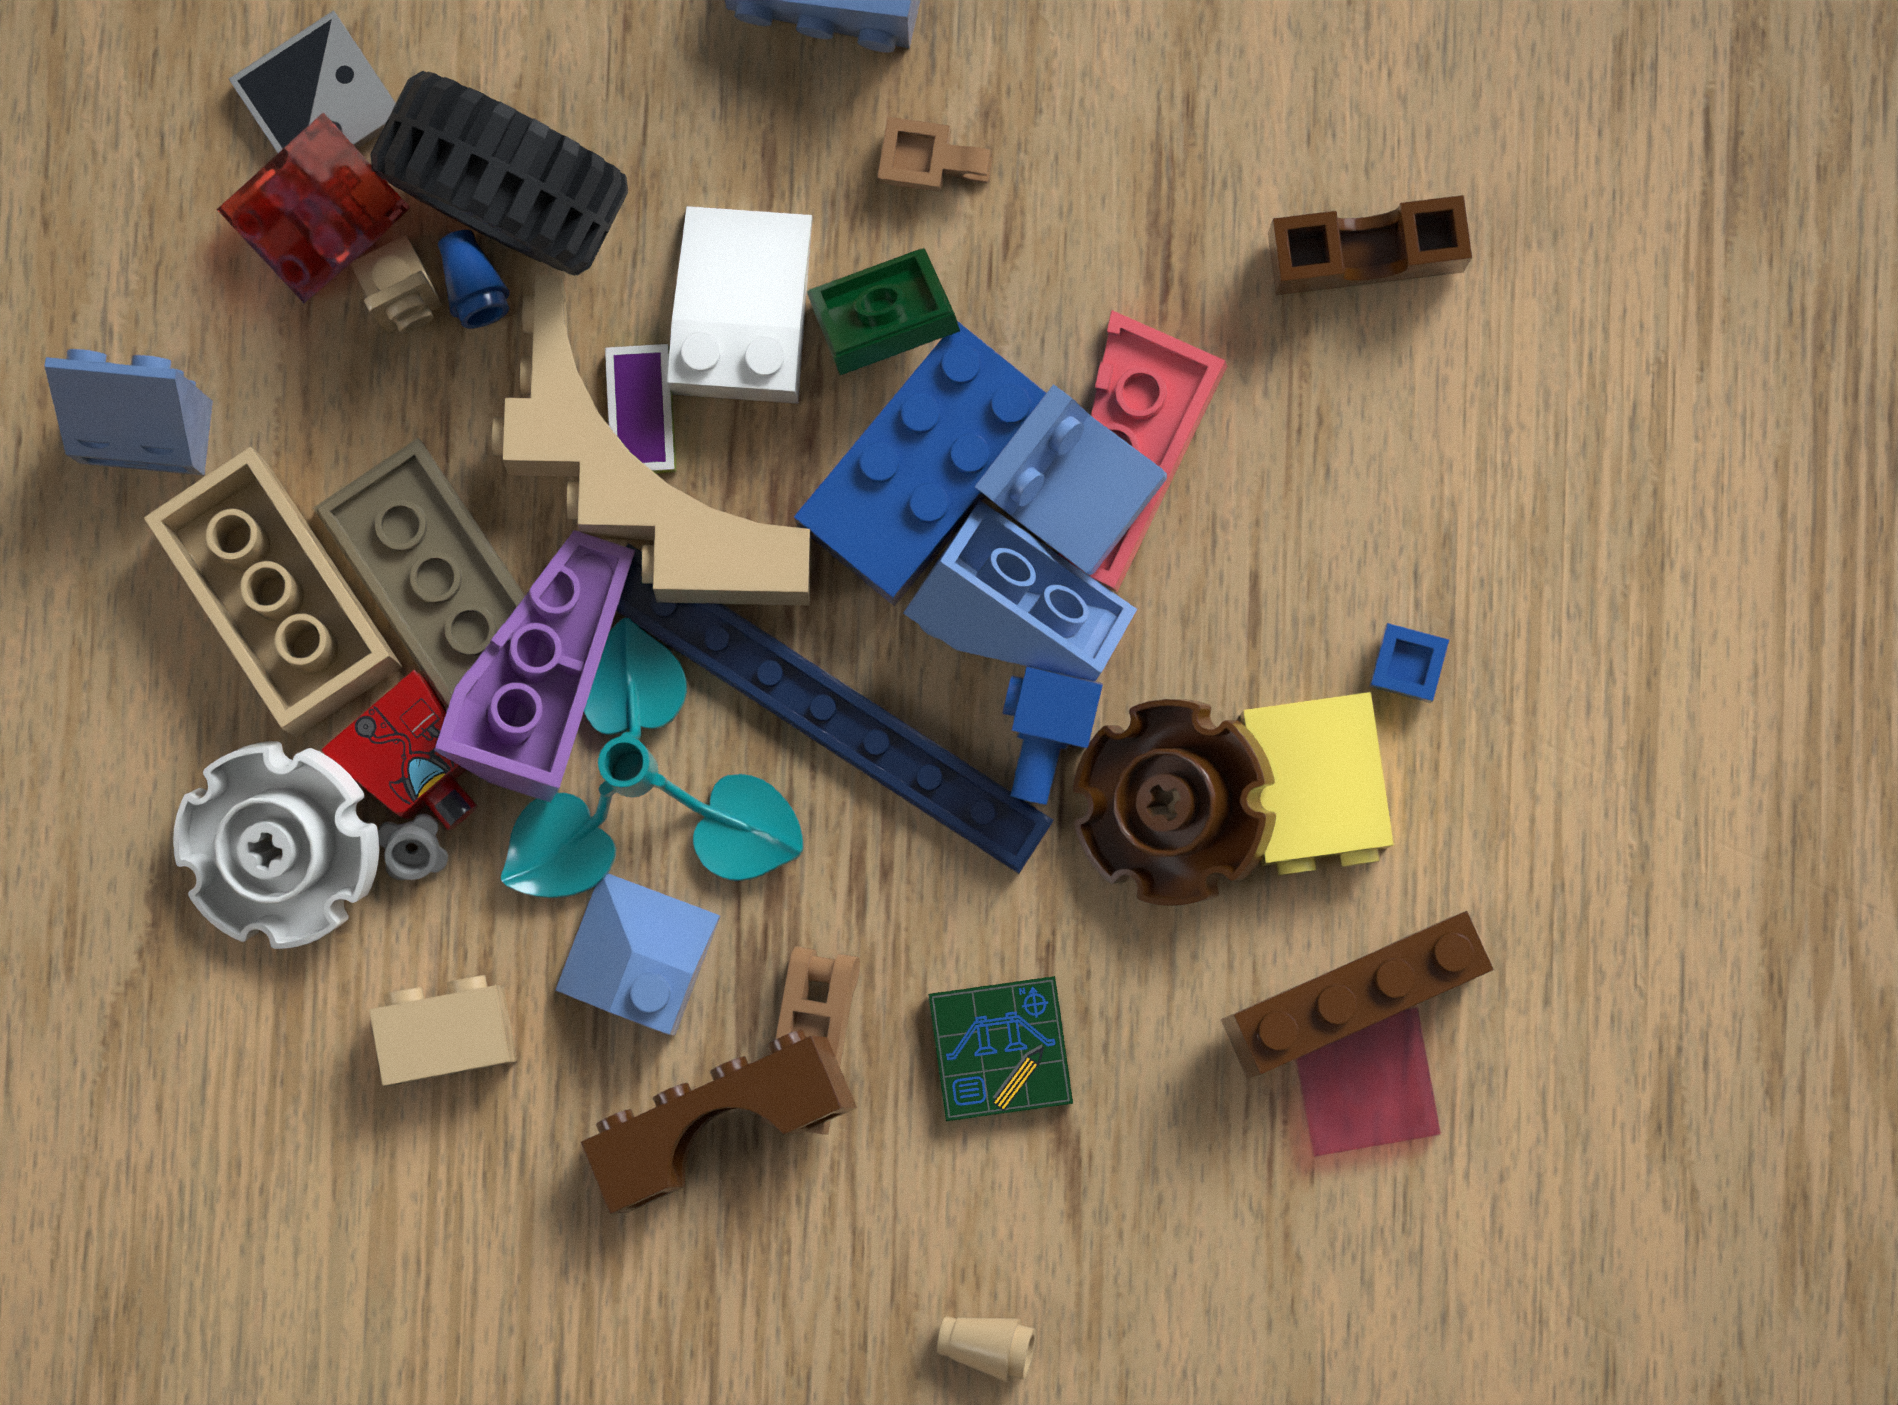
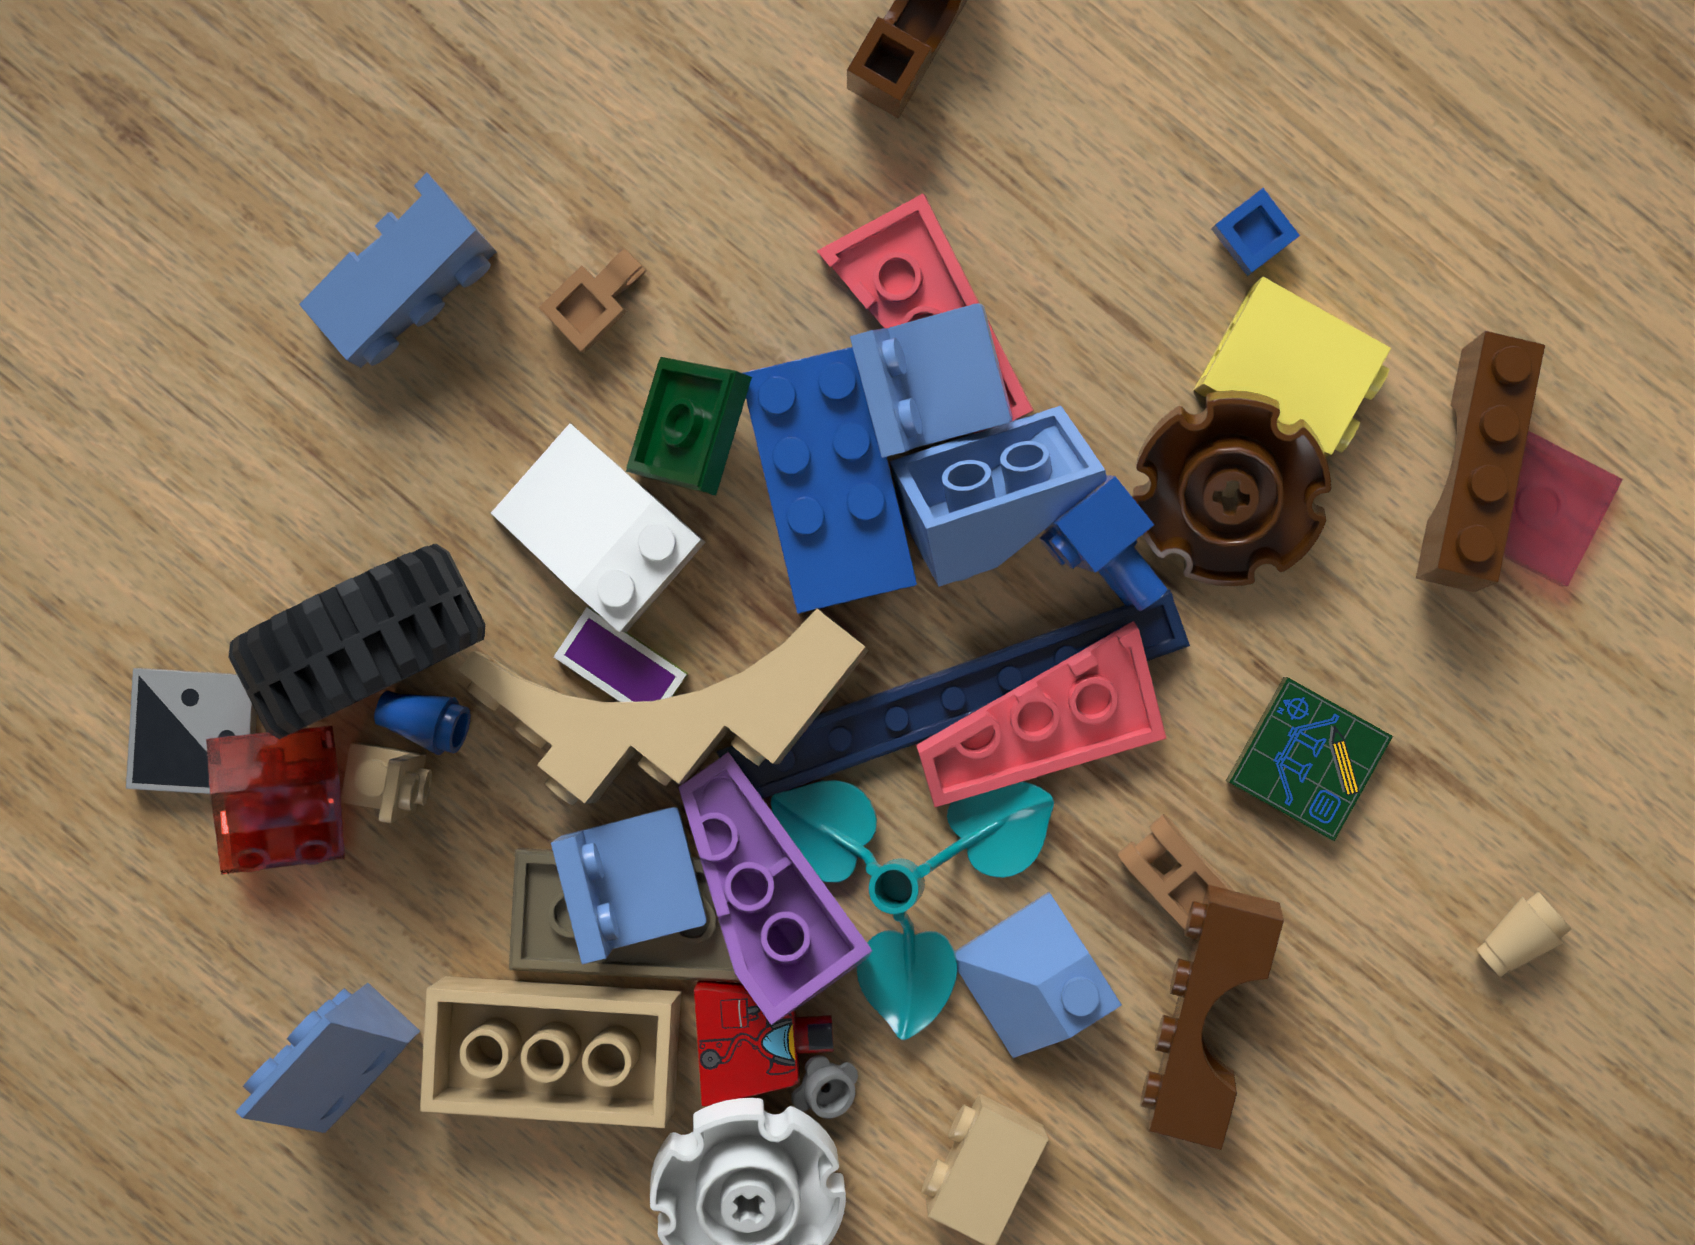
camera: 60 degrees left, 5 degrees up
(463, 548) = (628, 882): none -> medium blue bracket
(869, 806) = (1059, 719): none -> coral wing

